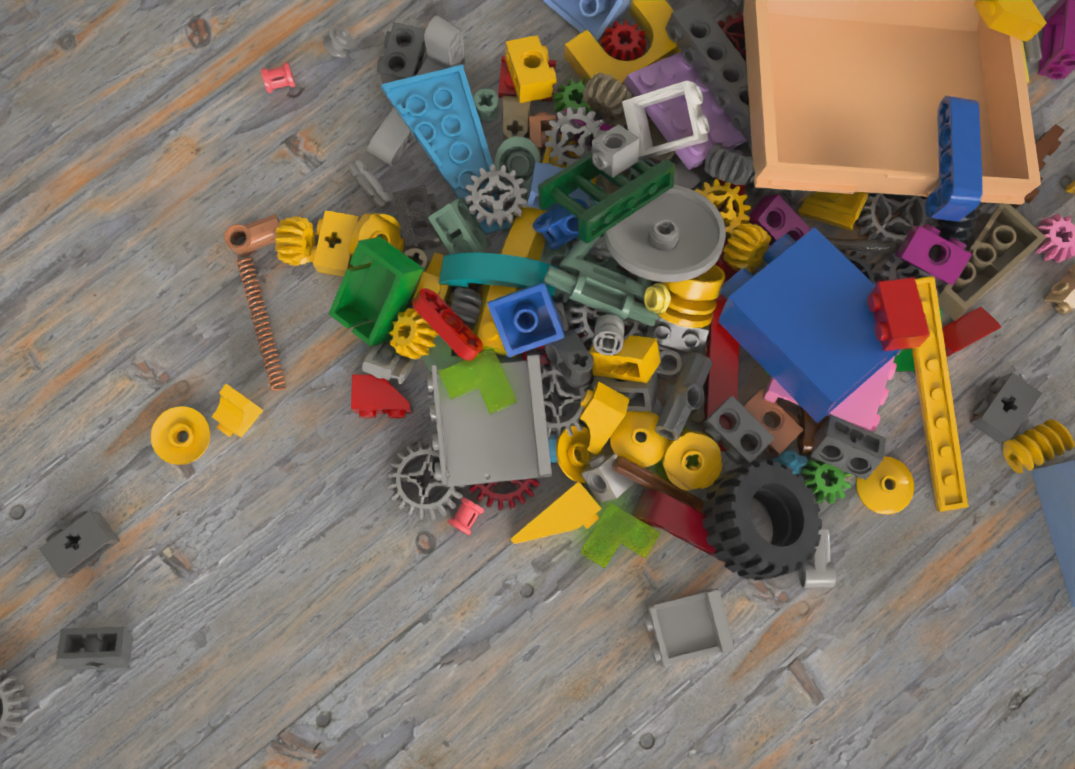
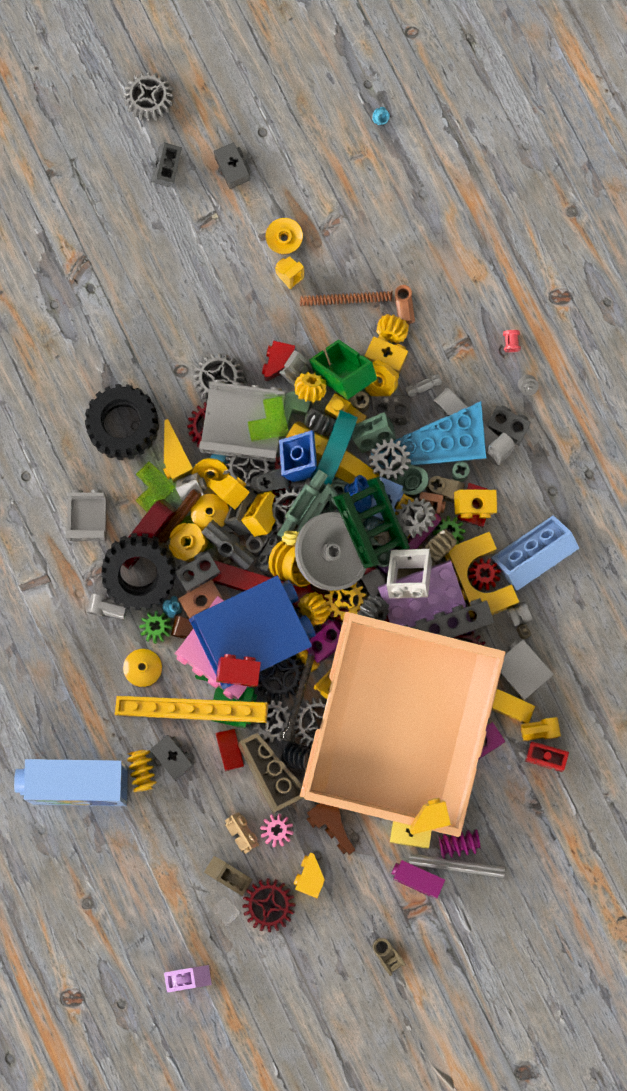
camera: 110 degrees right, 0 degrees up
(447, 324) = (300, 417): red beam -> none
(465, 516) = (190, 397): coral bush -> none
(561, 639) = (113, 399): none -> black tyre
(608, 334) = (277, 503): light grey wheel -> none
(615, 150) = (399, 532): light grey brick -> none
(848, 447) = (169, 637): dark grey brick -> none
(949, 263) = (270, 727): magenta brick -> none
(959, 160) = (333, 742): blue beam -> none

